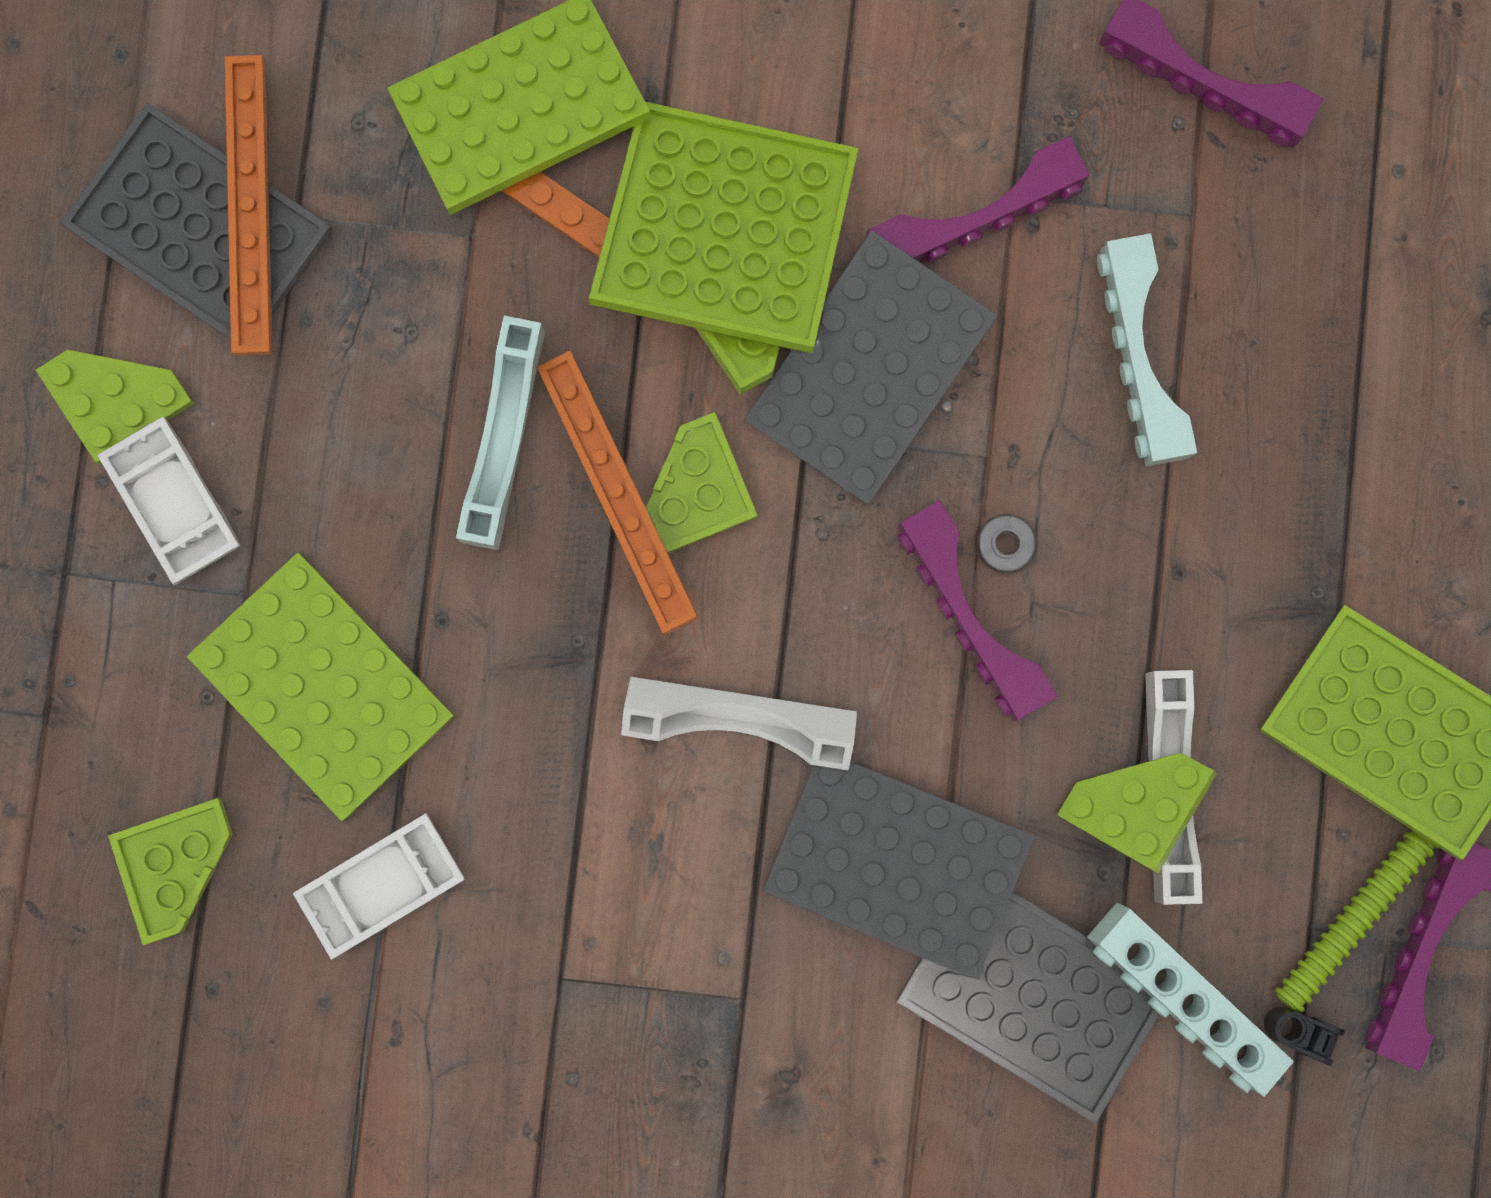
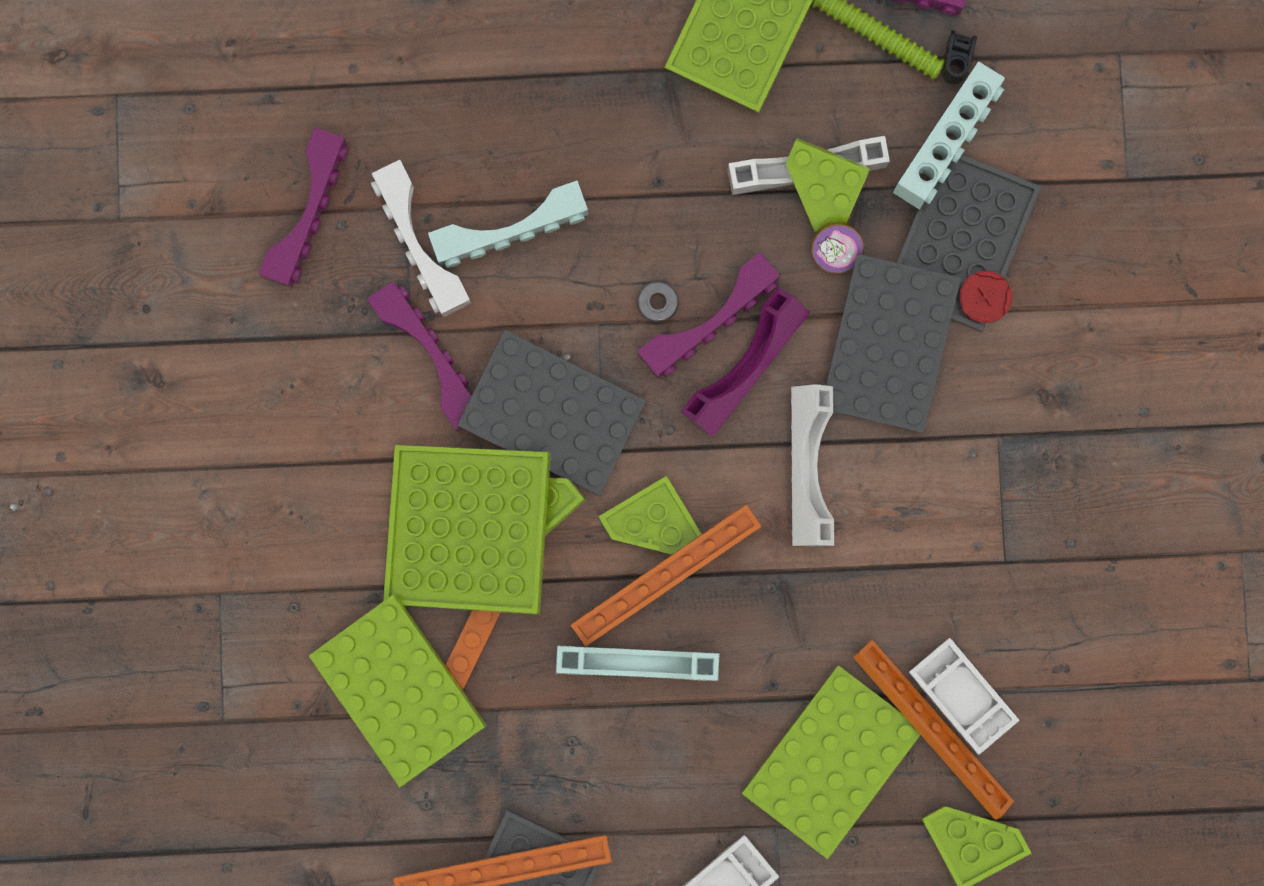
camera: 95 degrees left, 0 degrees up
(339, 835) = (933, 729): none -> orange plate
(945, 1013) = (985, 297): none -> red tile
(951, 707) = (777, 324): none -> magenta arch
(1049, 809) = (836, 247): none -> tile
(1212, 203) = (398, 191): none -> white arch

